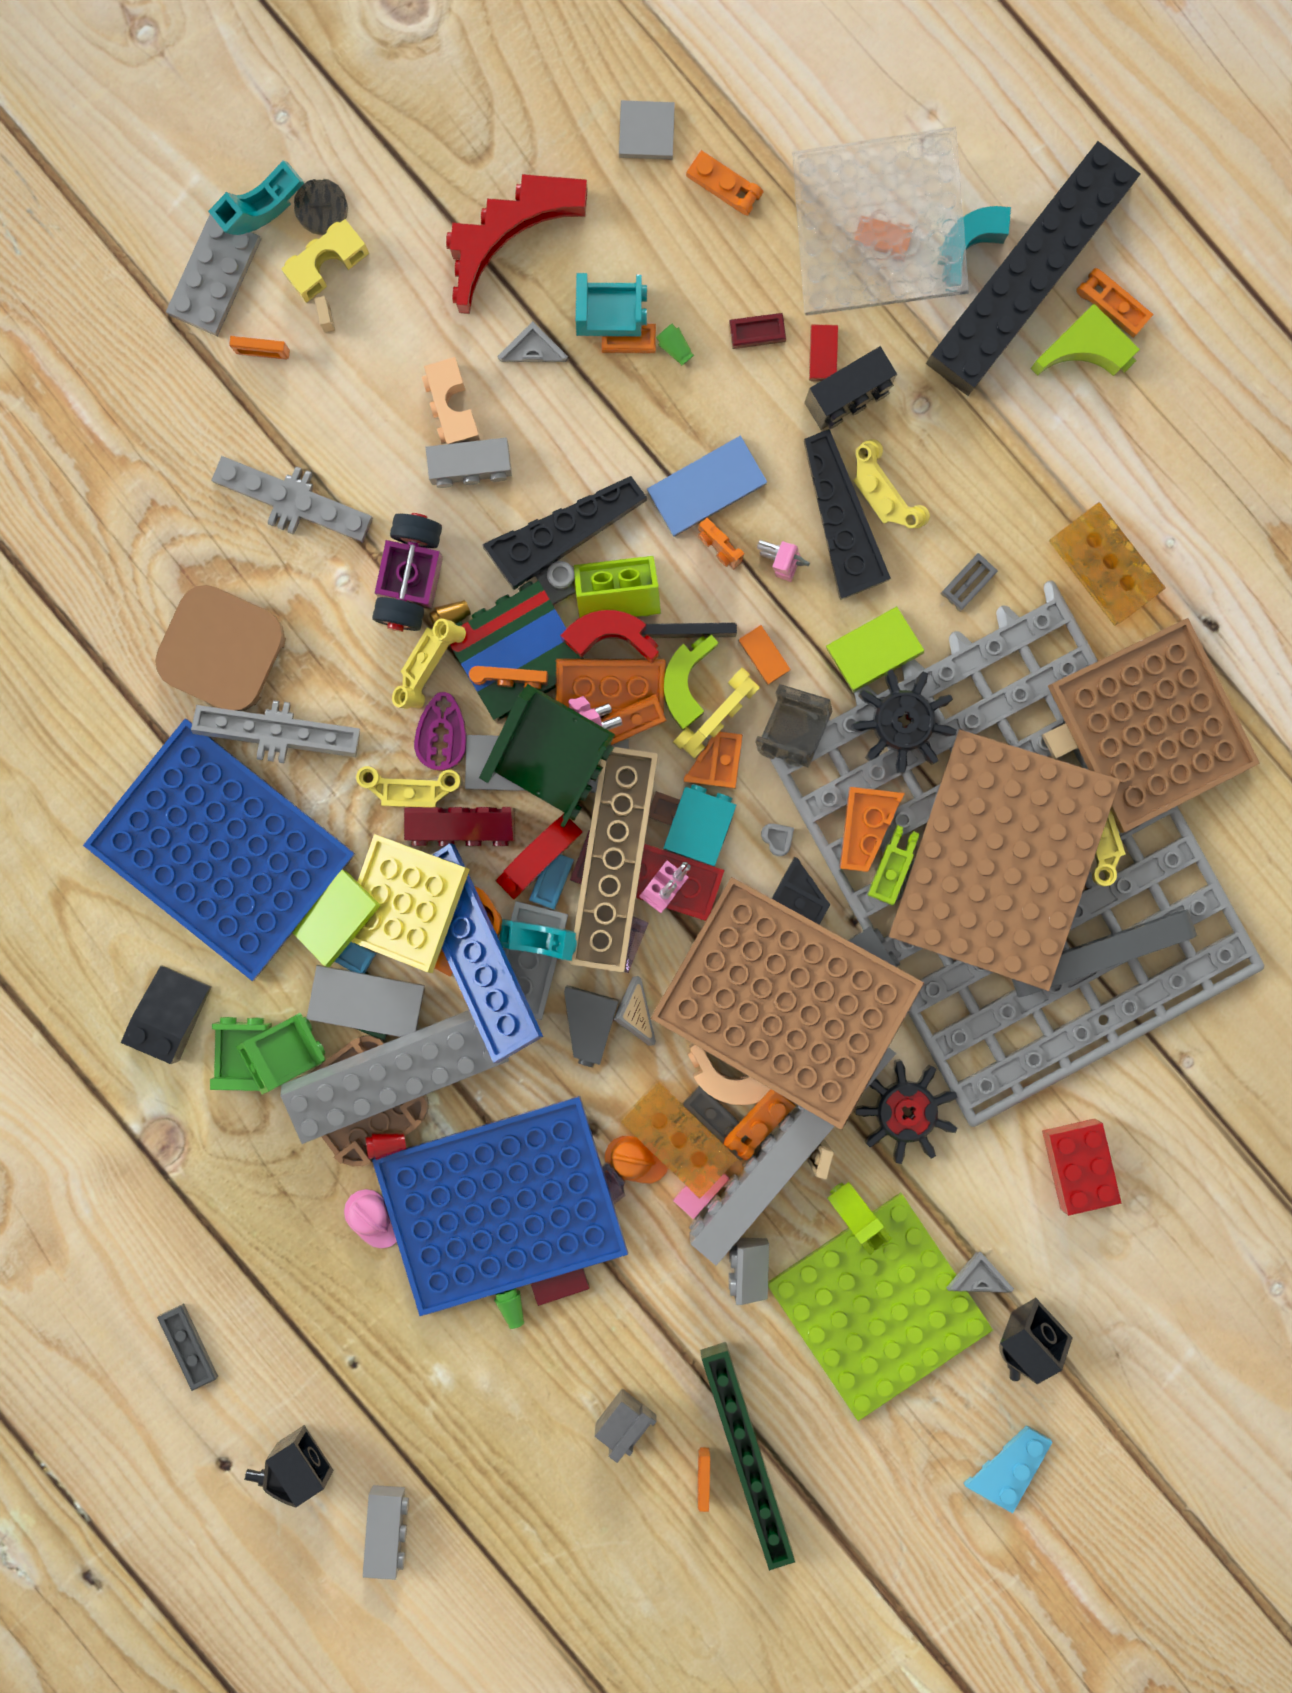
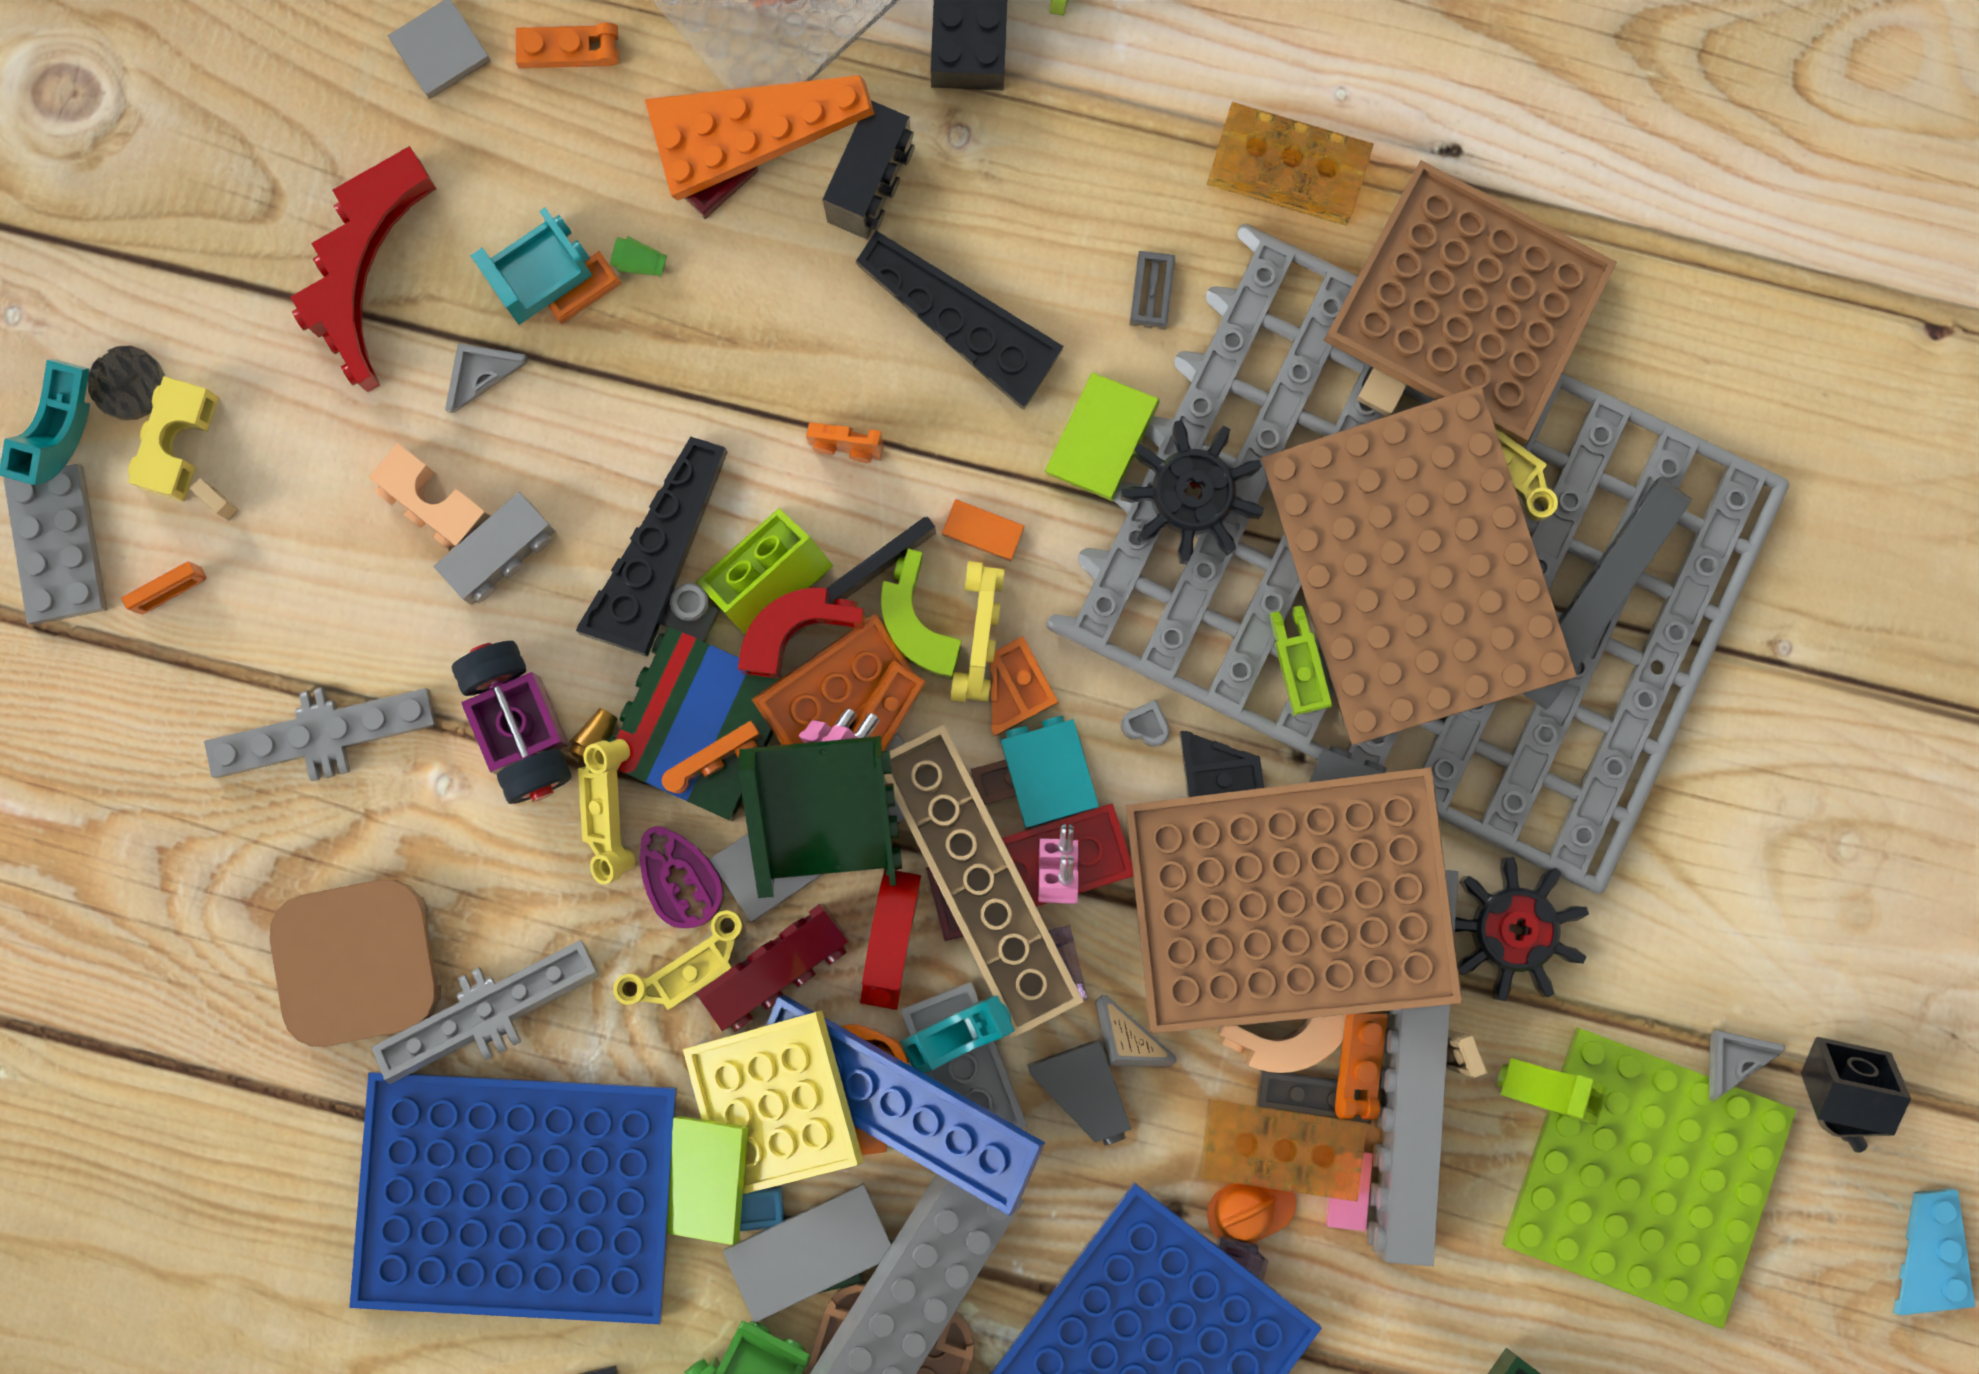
camera: 35 degrees left, 5 degrees down
(551, 882) = (926, 959): dark azure tile -> none
(707, 486) = (784, 389): medium blue tile -> none
(750, 1274) = (1475, 1243): light grey slope -> none
(785, 557) = (928, 404): bright pink piece -> none
(786, 307) = (734, 130): none -> orange wing
(795, 726) = (1075, 584): clear smoke panel -> none
(823, 351) = (815, 164): red tile -> none
(866, 822) = (1235, 638): orange wing -> none
(881, 492) = (983, 259): light yellow plate -> none
(1081, 1166) = (1756, 850): red brick -> none

